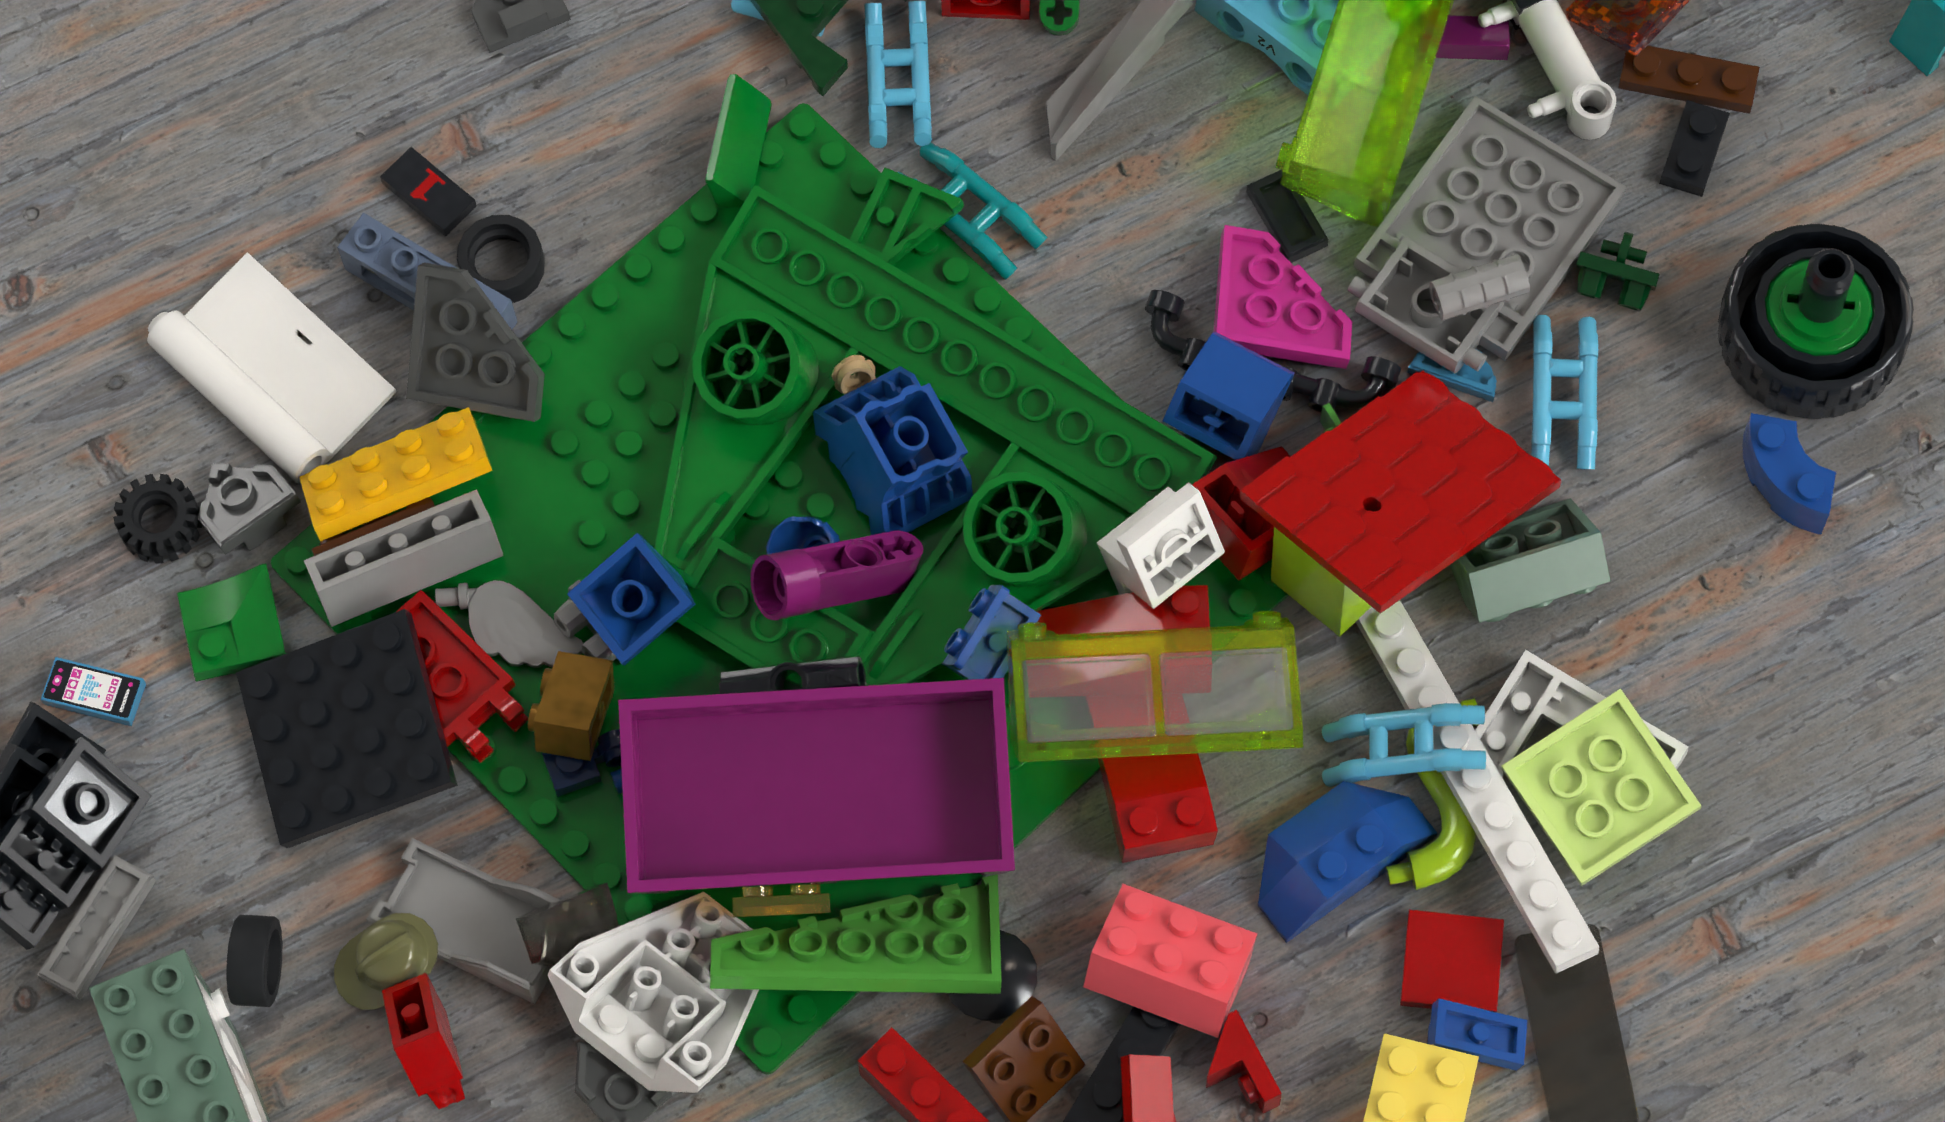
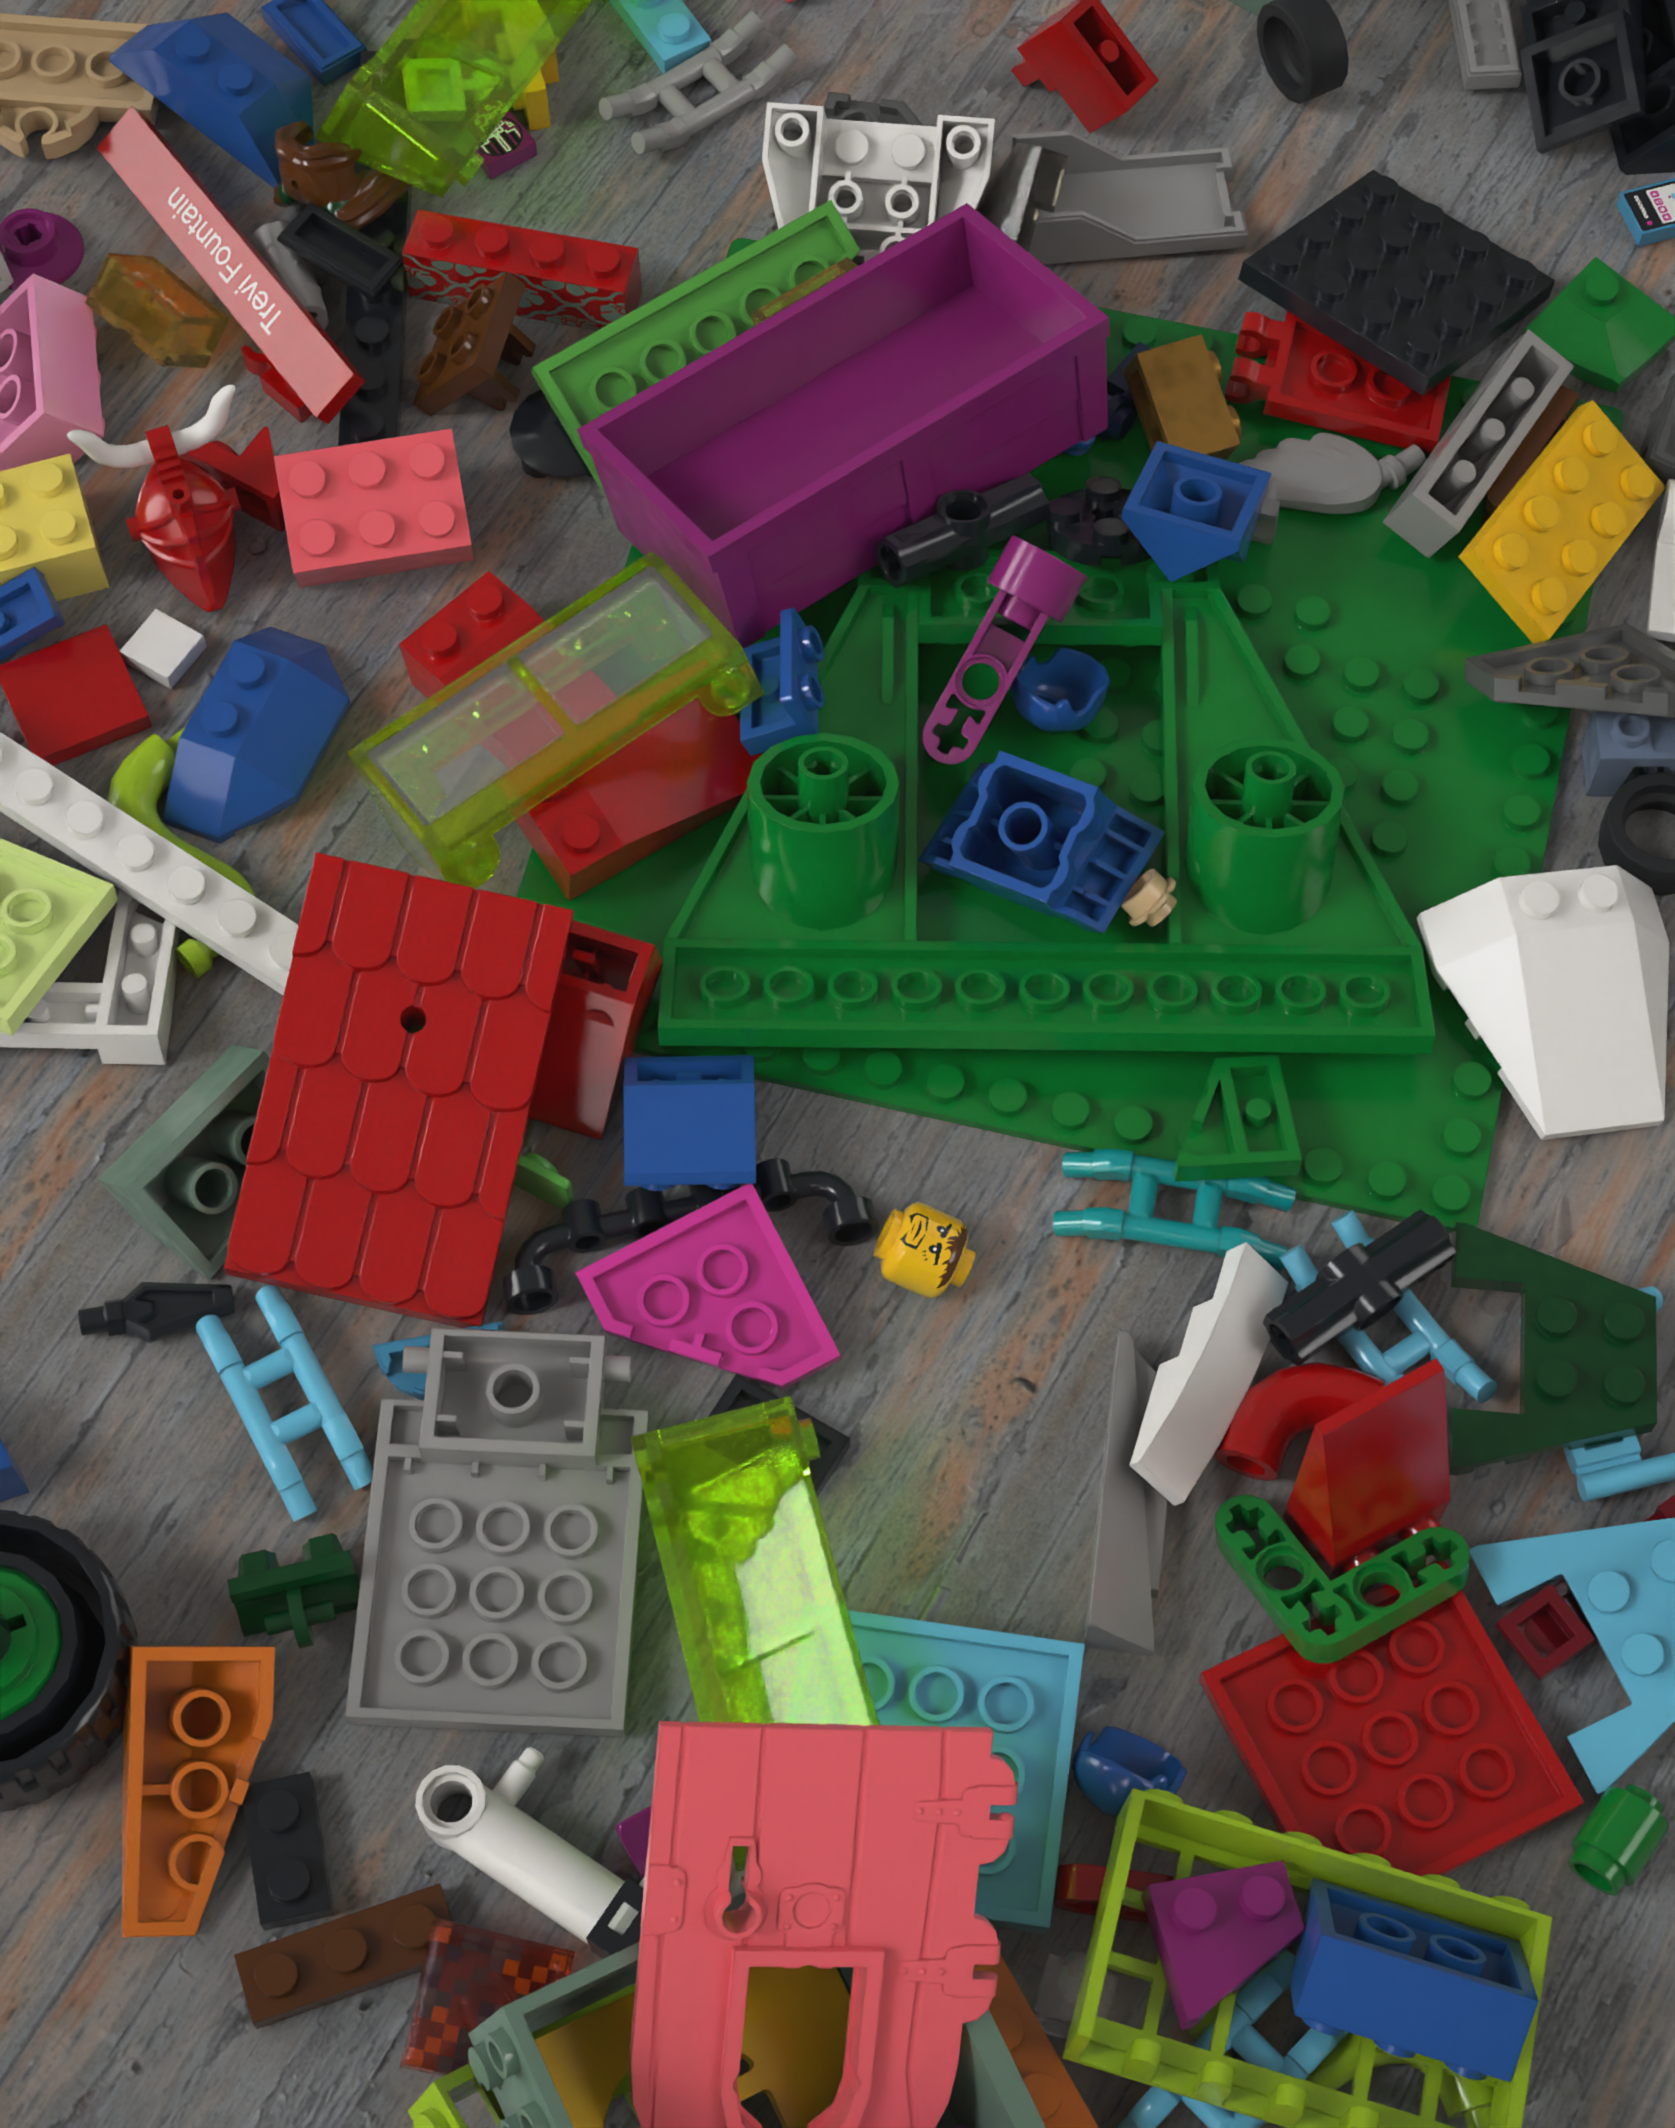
camera: 145 degrees right, 5 degrees down
(384, 956) = (1180, 125): olive piece -> none
(643, 193) = (1564, 992): none -> white wedge
(713, 656) = (1090, 525): none -> black plate
(737, 142) = (1505, 1107): green slope -> none
(904, 86) = (1359, 1287): none -> black piece
(986, 58) = (1283, 1408): none -> red cylinder
(1036, 84) = (1208, 1380): none -> white slope
(1134, 260) = (924, 1250): none -> yellow head
(1162, 545) = (647, 857): white bracket -> none
(1305, 1036) = (180, 507): none -> red helmet
(1370, 964) = (163, 648): none -> white tile
(1425, 757) = (225, 871): medium azure piece -> none
(1479, 287) = (451, 1419): light grey axle -> none
(1611, 493) = (158, 1310): none -> black piece
(1728, 212) = (186, 1768): none -> orange wedge

